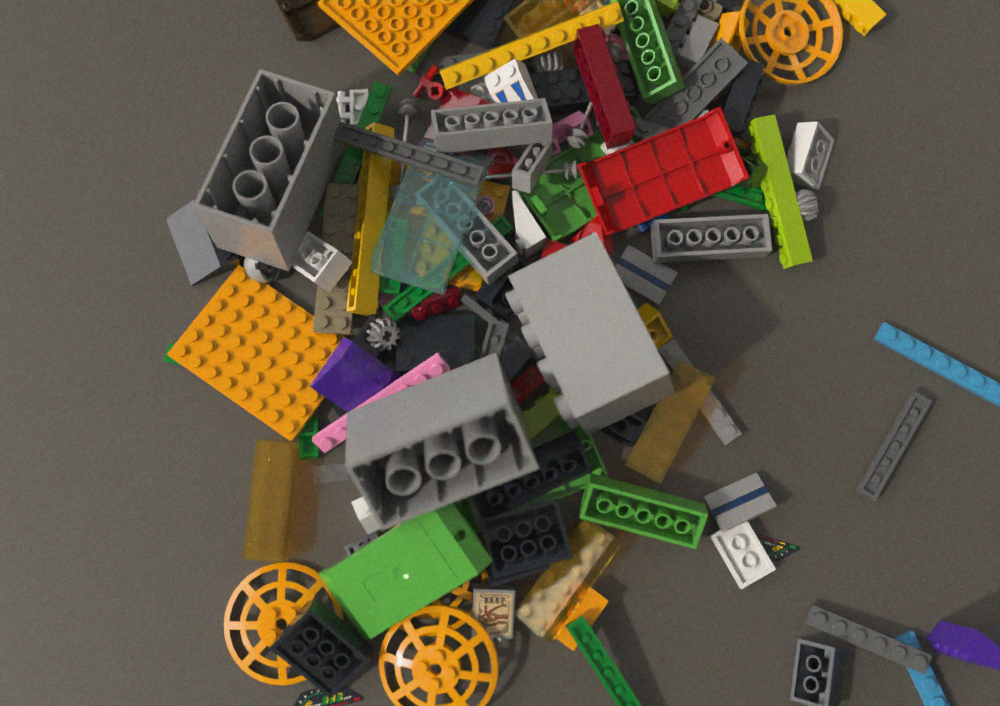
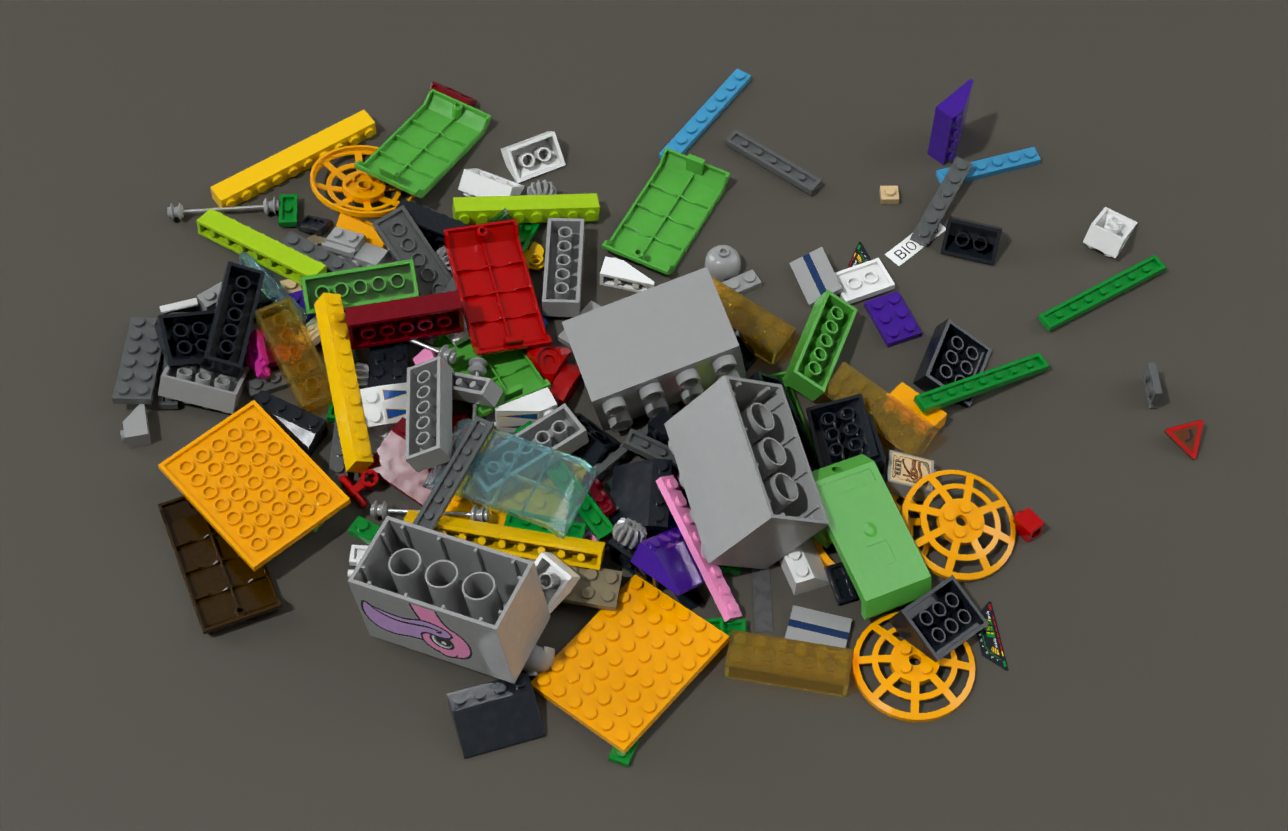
camera: 90 degrees left, 25 degrees down
(314, 527) = (818, 627): none -> light grey tile
(648, 654) = (951, 357): none -> black slope
(698, 588) = (892, 319): none -> dark purple plate
(707, 22) = (344, 242): none -> light grey plate
(714, 294) = (623, 276): none -> white slope
(724, 206) = (534, 257): none -> yellow plate
(745, 402) = (723, 262): none -> light grey cylinder
(800, 602) = (908, 248): none -> white sticker
(803, 339) = (669, 212): none -> bright green piece
(848, 82) = (427, 144): none -> bright green piece
(856, 192) = (533, 156): none -> white slope
(870, 578) = (889, 194): none -> tan plate
(927, 101) = (453, 93): none -> dark red hinge

